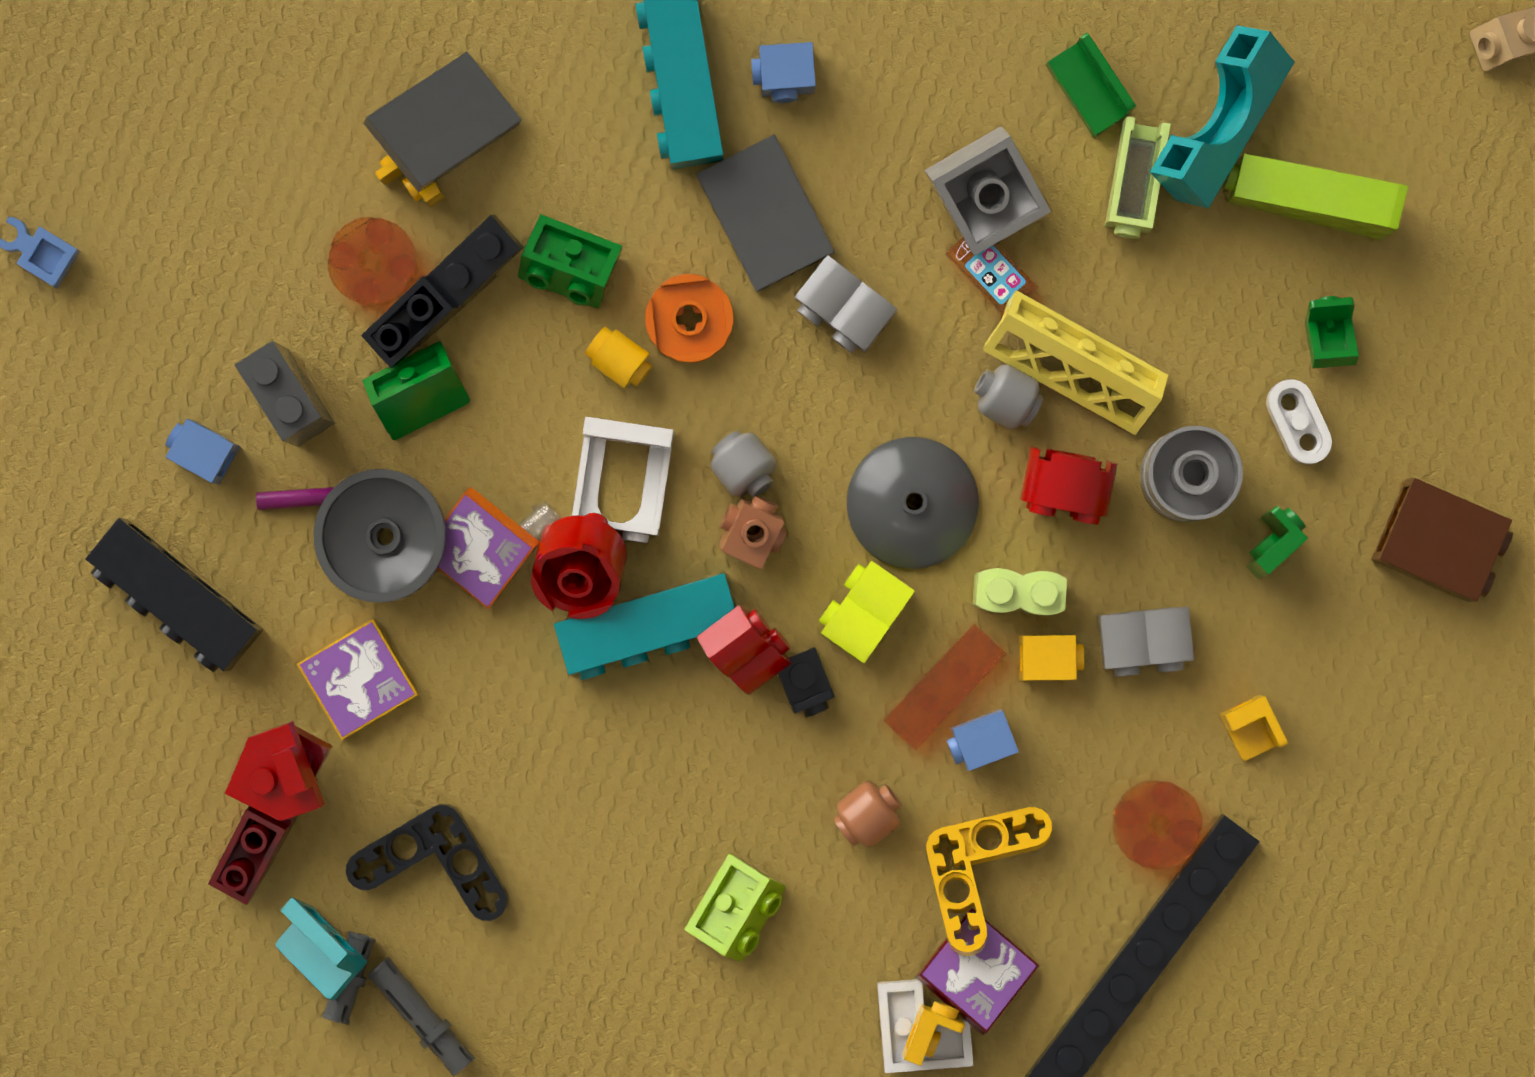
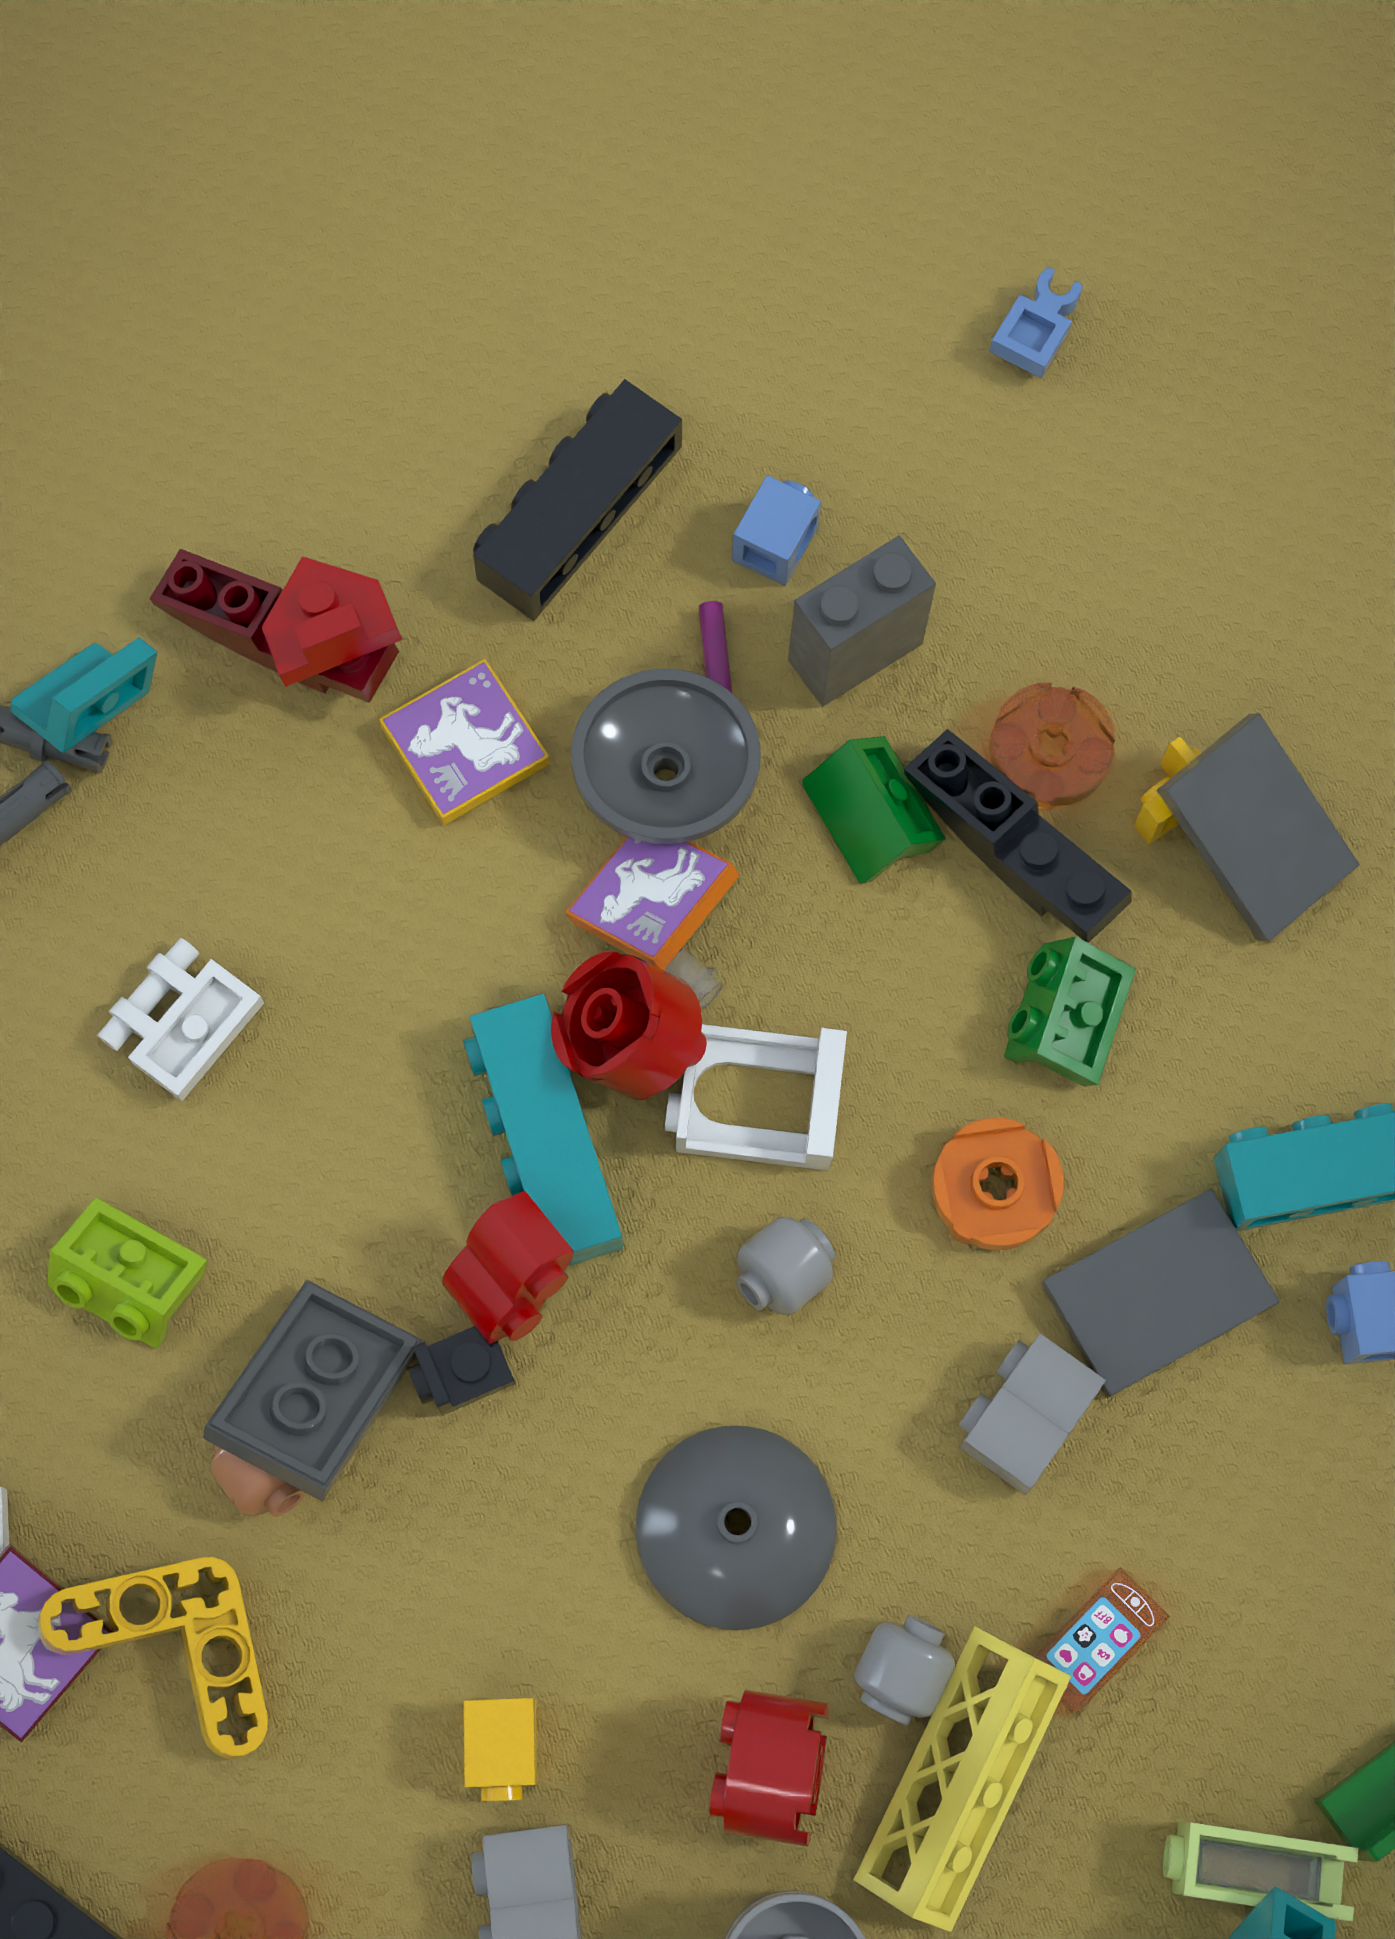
camera: 90 degrees right, 15 degrees down
(427, 844) = (232, 842): black beam -> none
(568, 866) = (194, 1028): none -> white plate
(618, 357) = (934, 1082): yellow brick -> none
(755, 545) = (665, 1273): nougat brick -> none
(820, 779) = (312, 1390): none -> dark grey tile
(866, 611) = (569, 1455): neon yellow brick -> none
(944, 686) = (456, 1582): clear orange tile -> none
(982, 740) = (370, 1639): medium blue brick -> none
(988, 190) = (1220, 1627): light grey slope -> none
(1006, 591) = (603, 1673): yellowish green brick -> none

